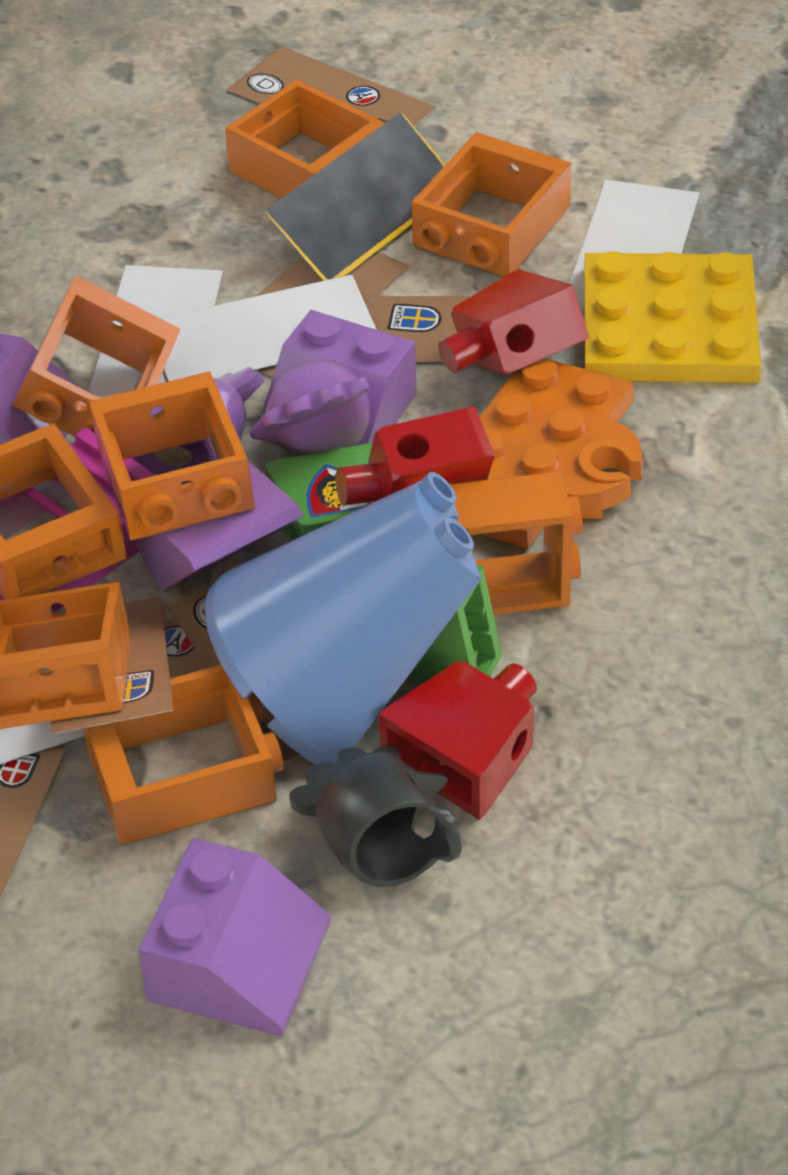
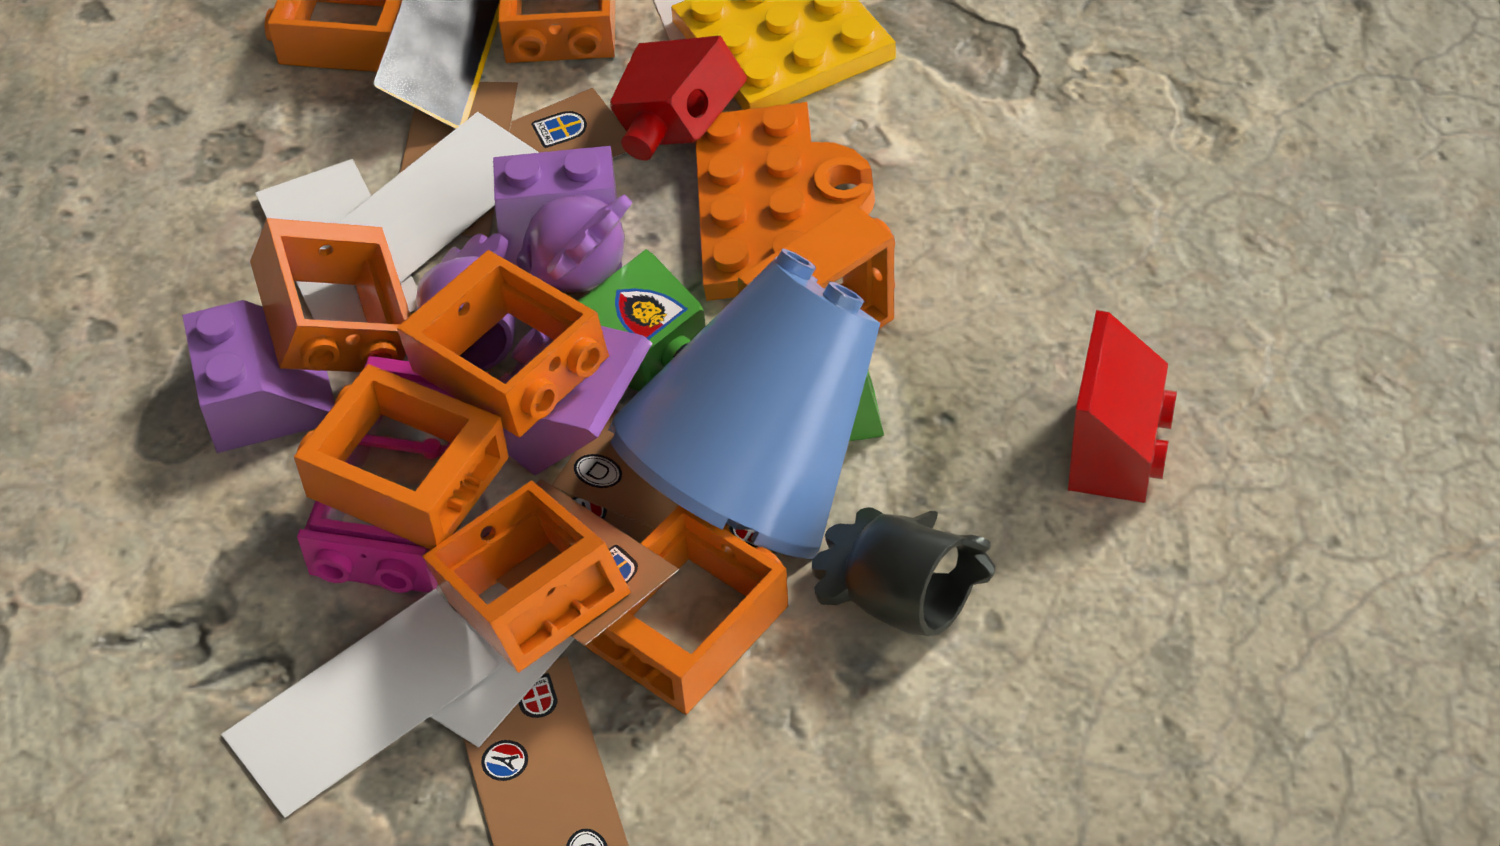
camera: 30 degrees left, 5 degrees up
(232, 939) = (863, 743): medium lavender slope -> none
(405, 452) = (723, 246): red torso -> none
(466, 729) = (911, 463): red torso -> none
(678, 770) = (1120, 415): none -> red slope

